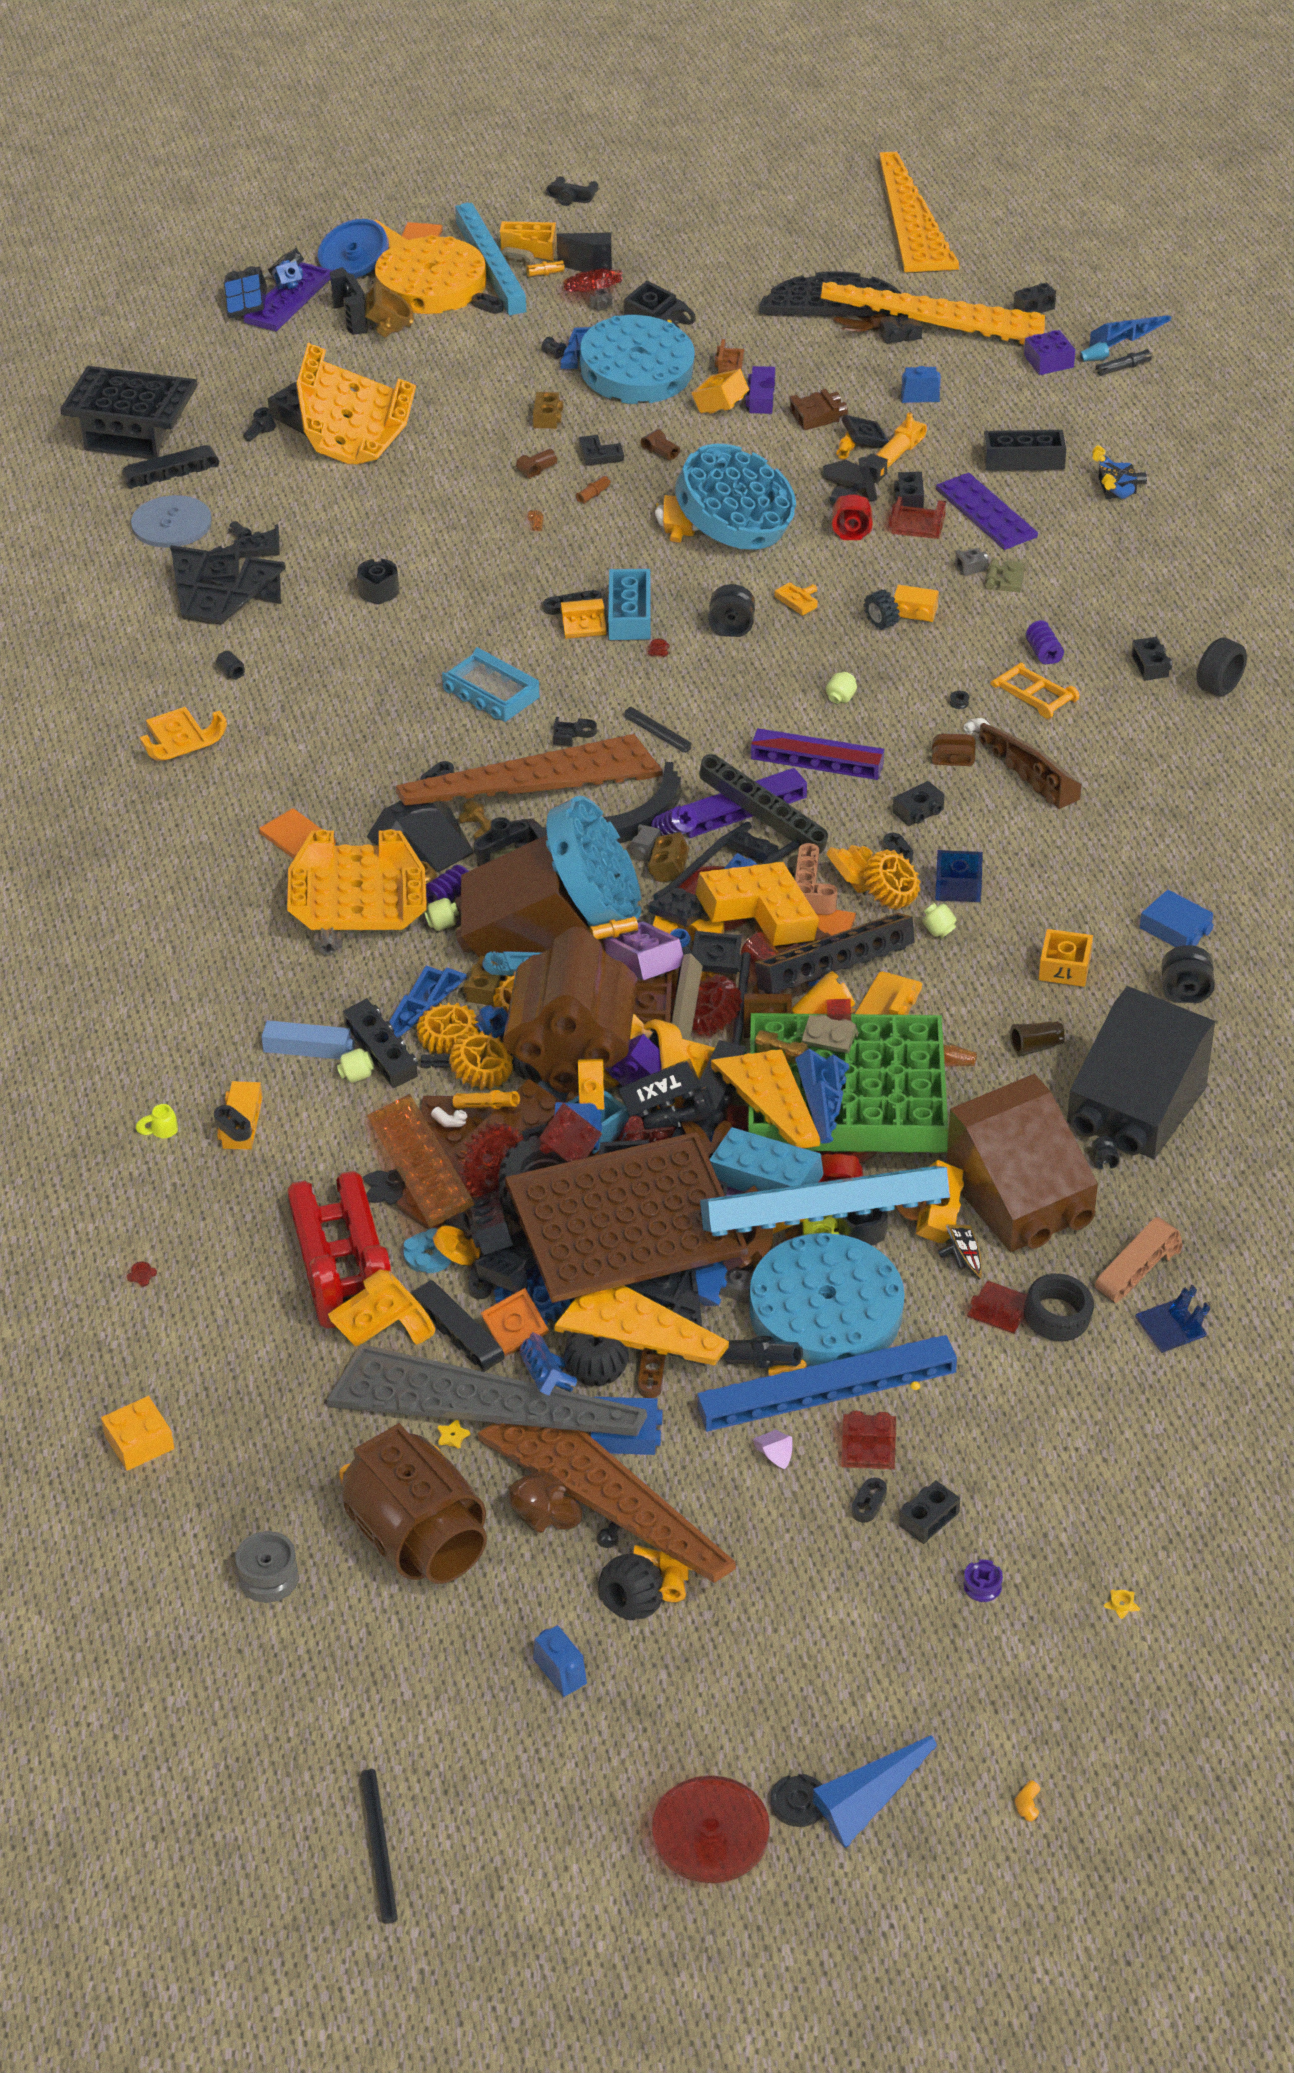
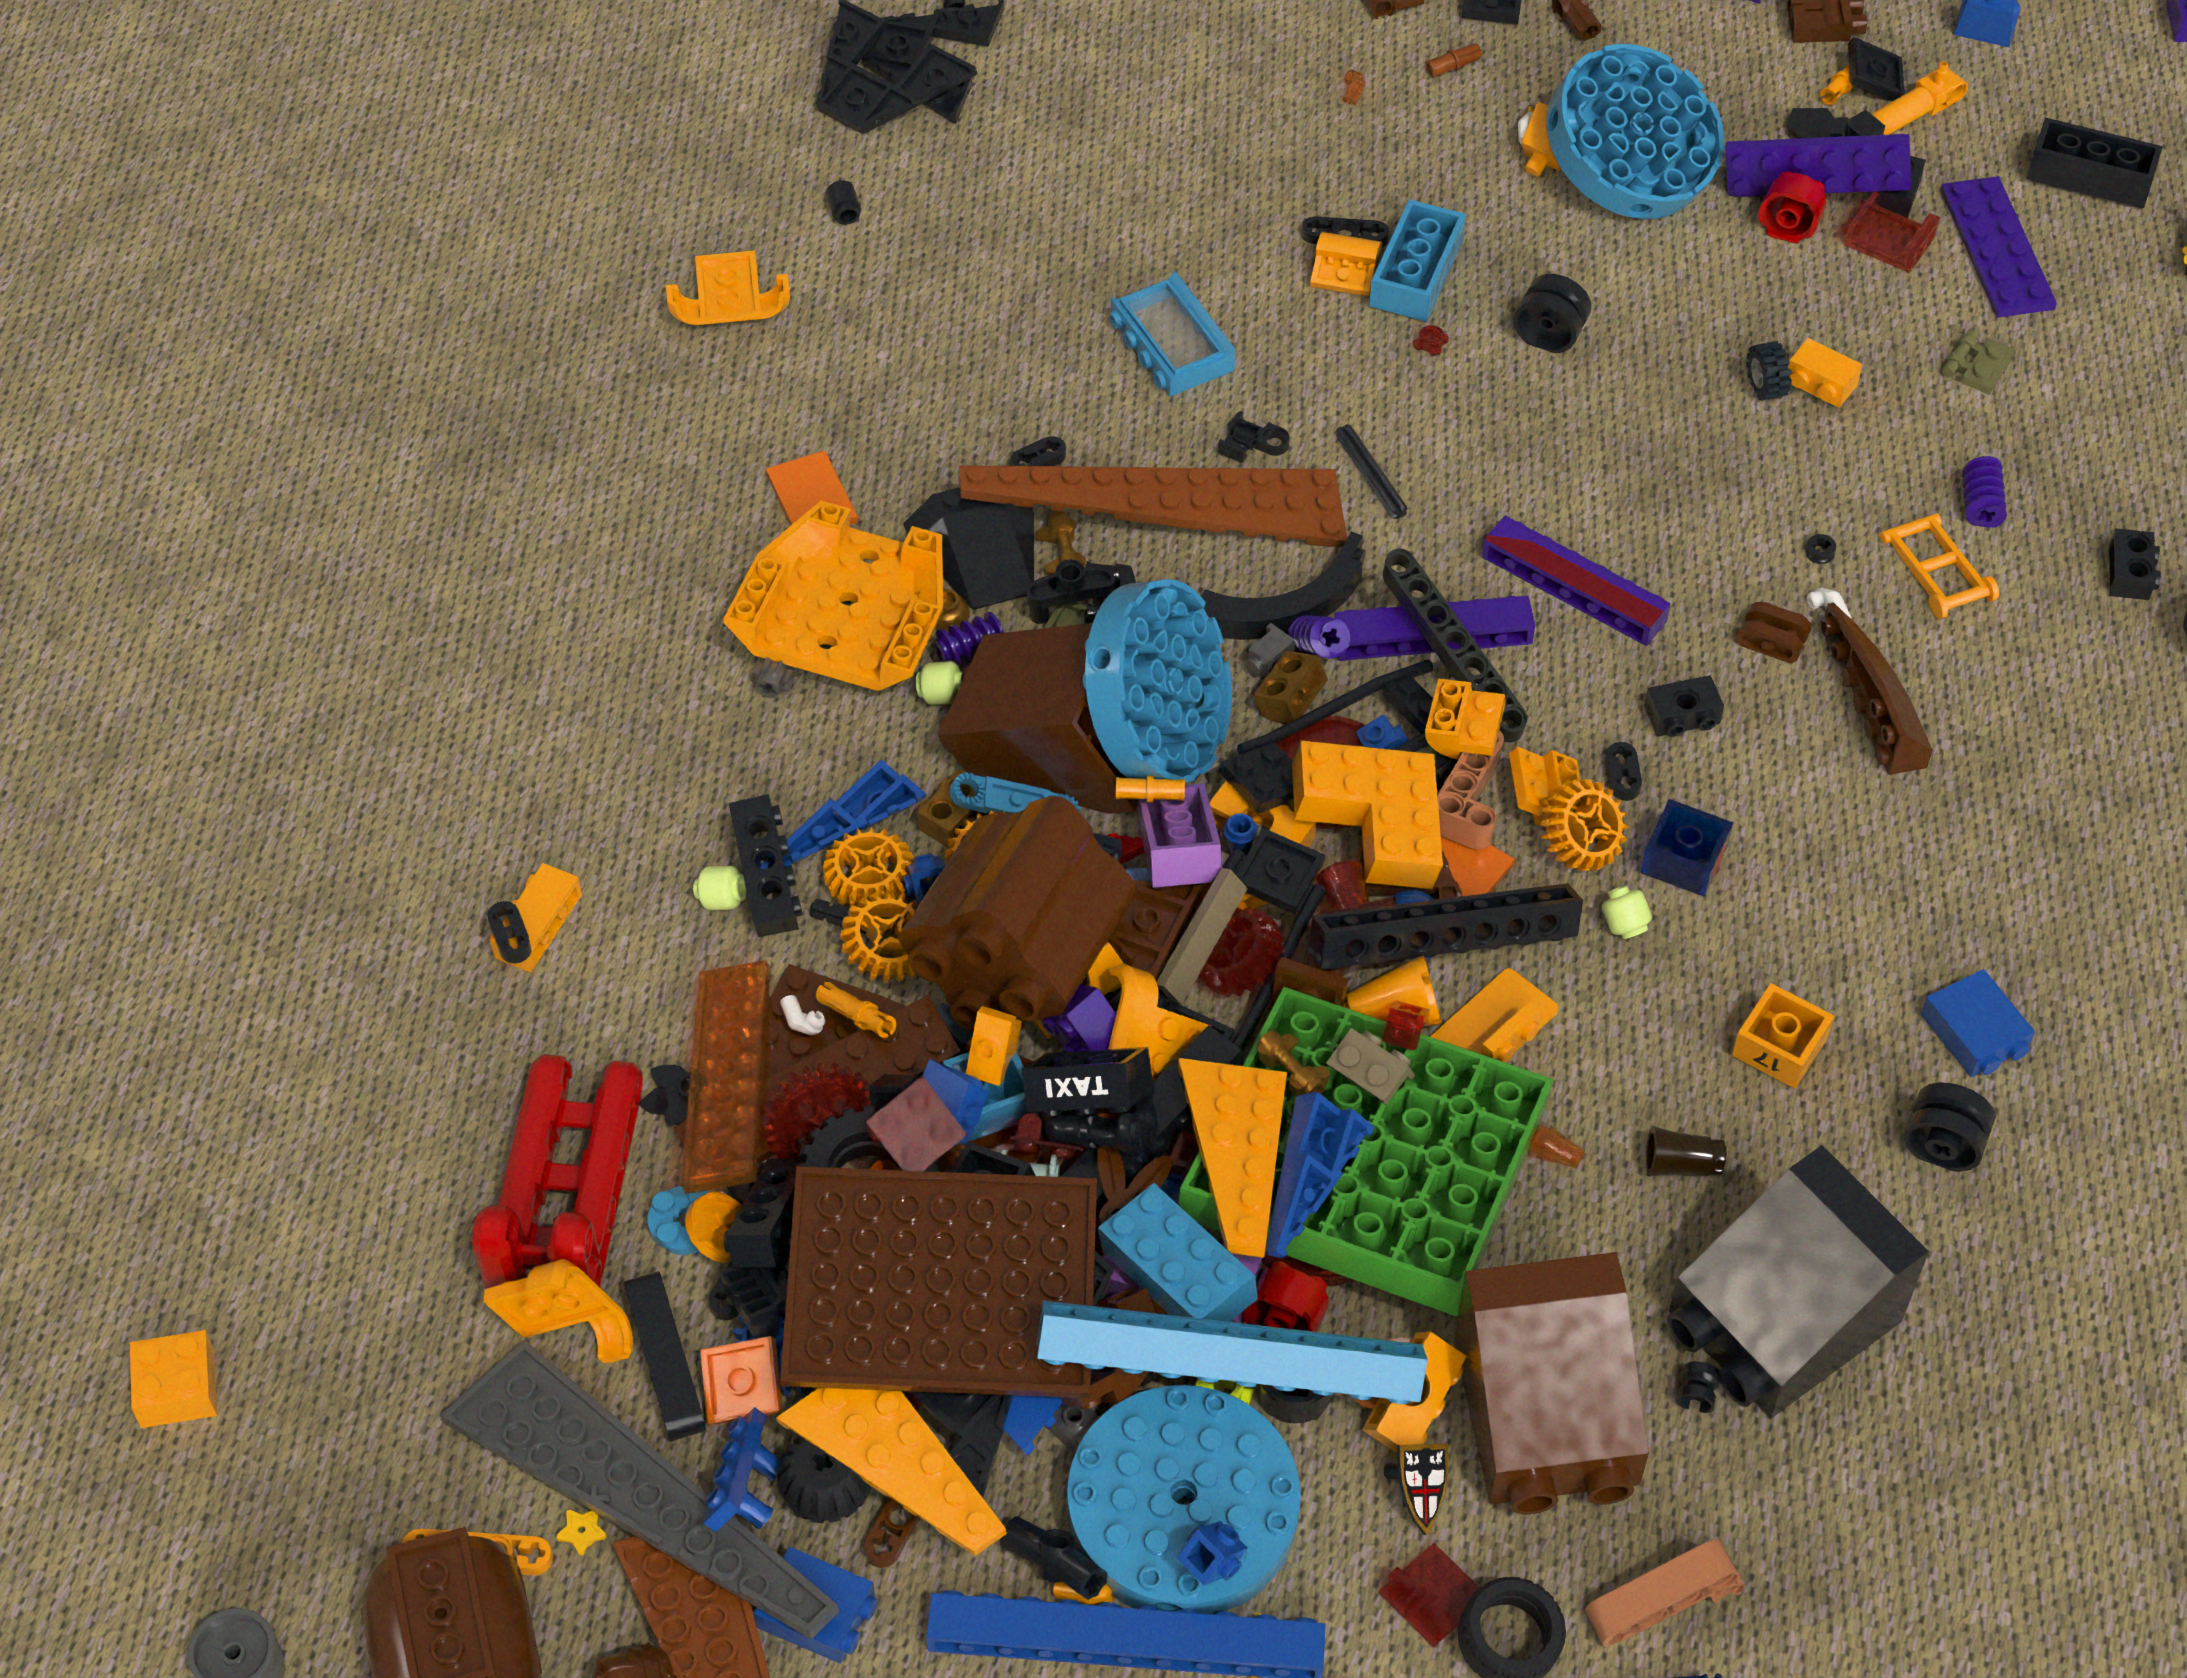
camera: 20 degrees right, 10 degrees up
(146, 1273) = (298, 1114): clear red plate -> none
(162, 1120) = (431, 893): neon yellow piece -> none
(306, 1040) = (675, 826): medium blue brick -> none
(377, 581) = (1093, 126): black brick -> none
(790, 841) = (1463, 719): none -> light orange brick
(797, 598) = (1661, 314): light orange plate -> none
(841, 687) = (1657, 481): yellowish green head -> none
(856, 1309) = (1213, 1552): none -> blue brick
(875, 482) = (1838, 162): none -> dark purple plate
(971, 561) = (1937, 325): flat silver brick -> none

